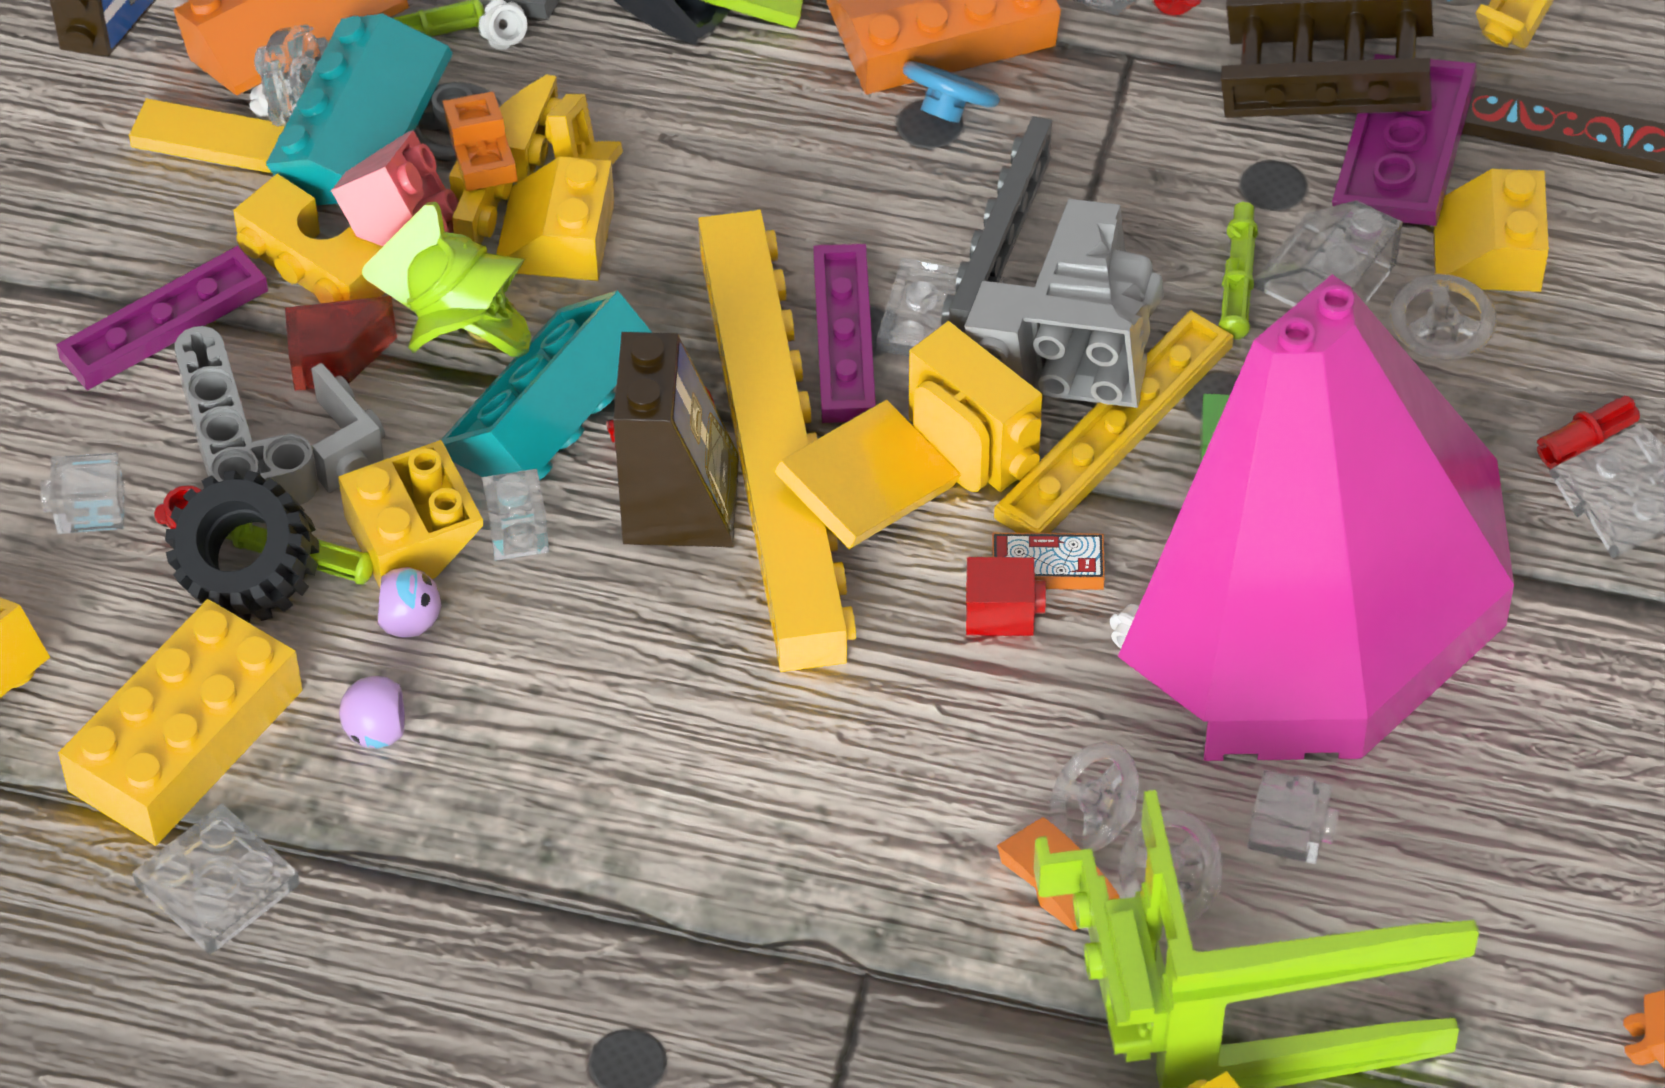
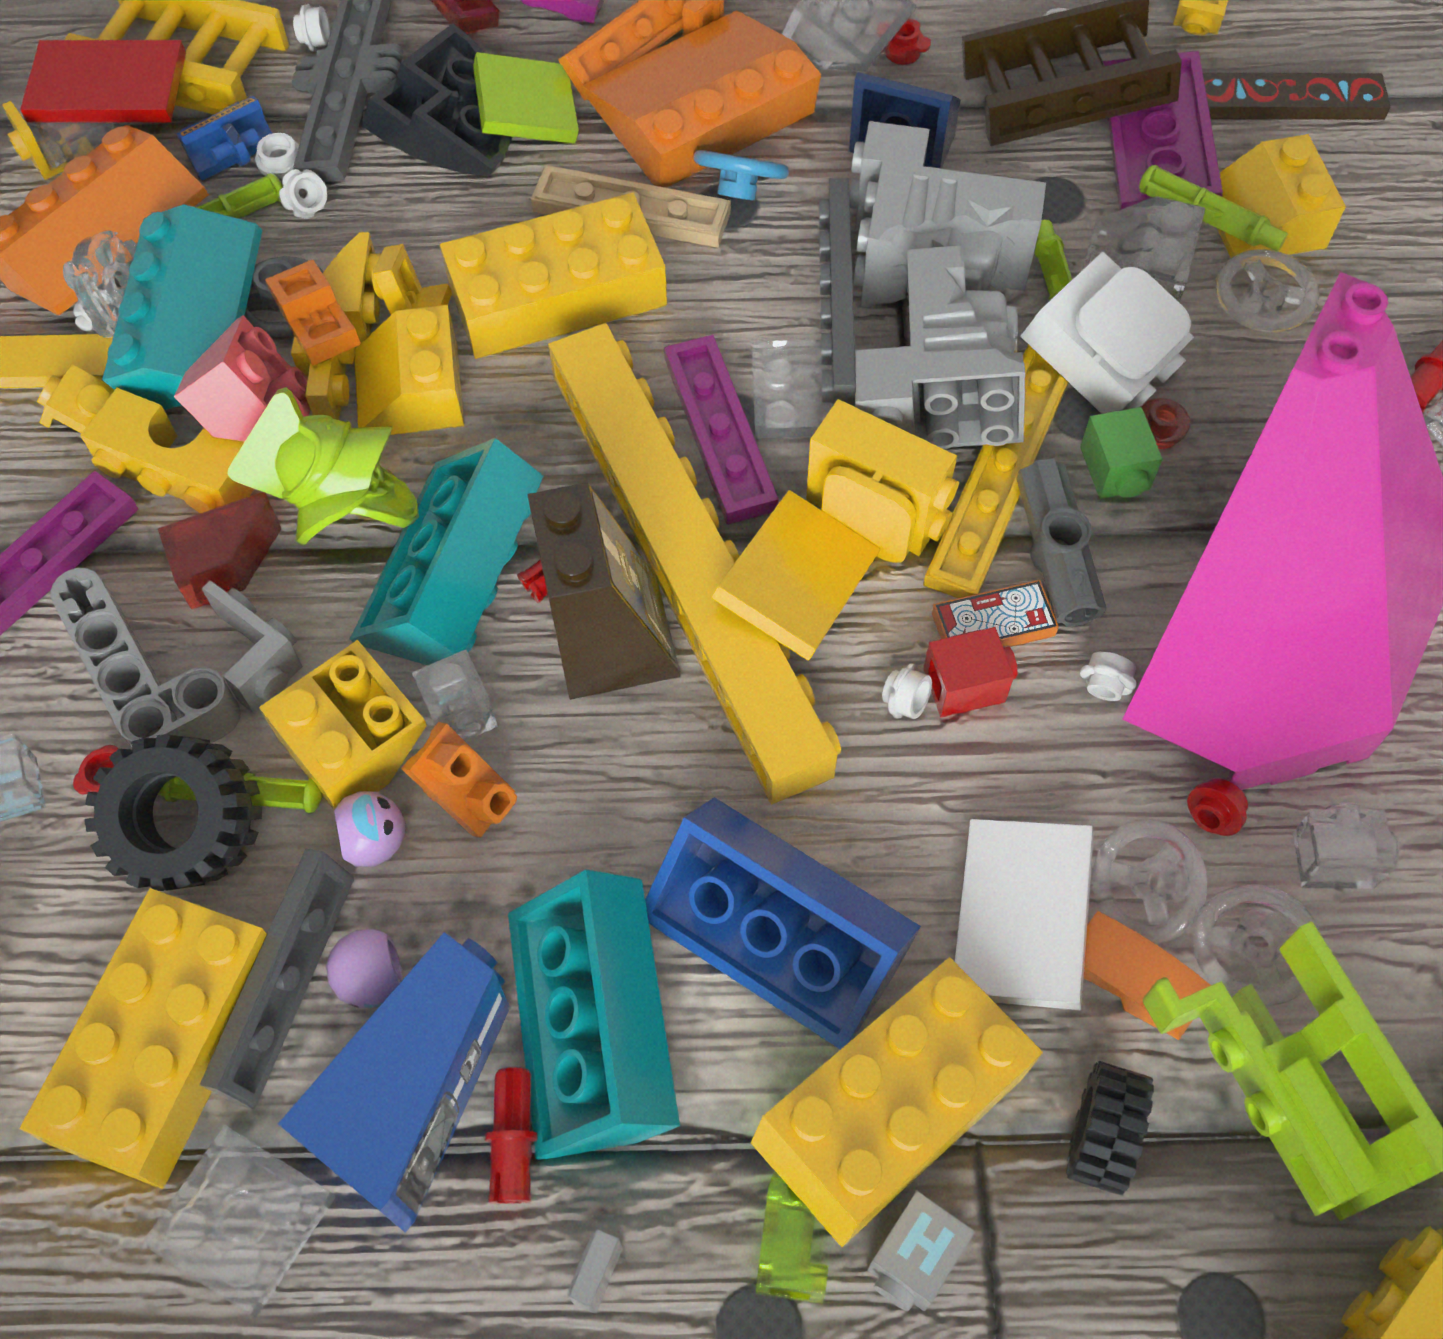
camera: 15 degrees left, 10 degrees up
(232, 176) = (73, 399): none -> yellow bracket
(297, 702) = (278, 980): none -> dark grey tile
(385, 794) = (405, 1079): none -> blue slope
(461, 869) = (511, 1138): none -> red axle
(499, 579) = (460, 781): none -> orange hips
(502, 977) = (595, 1271): none -> light grey tile
(559, 790) = (591, 1016): none -> teal slope
(668, 1002) = (786, 1248): none -> clear neon green leg
(728, 154) = (555, 274): none -> yellow brick
(747, 757) = (777, 921): none -> blue slope
(780, 1027) = (919, 1254): none -> light grey brick
(799, 903) = (894, 1099): none -> yellow brick
(831, 103) = (666, 210): none -> tan tile
(938, 602) = (907, 692): none -> white plate
(973, 801) = (1026, 911): none -> white tile
(975, 968) = (1110, 1128): none -> black tyre
(1134, 75) = (905, 105): none -> dark blue slope
(1134, 526) = (1065, 569): none -> dark grey piece
(1166, 191) = (927, 207): none -> light grey brick
(1189, 758) = (1218, 807): none -> red plate
(1236, 304) = (1111, 334): none -> white brick
(1416, 225) = (1218, 212): none -> lime piece

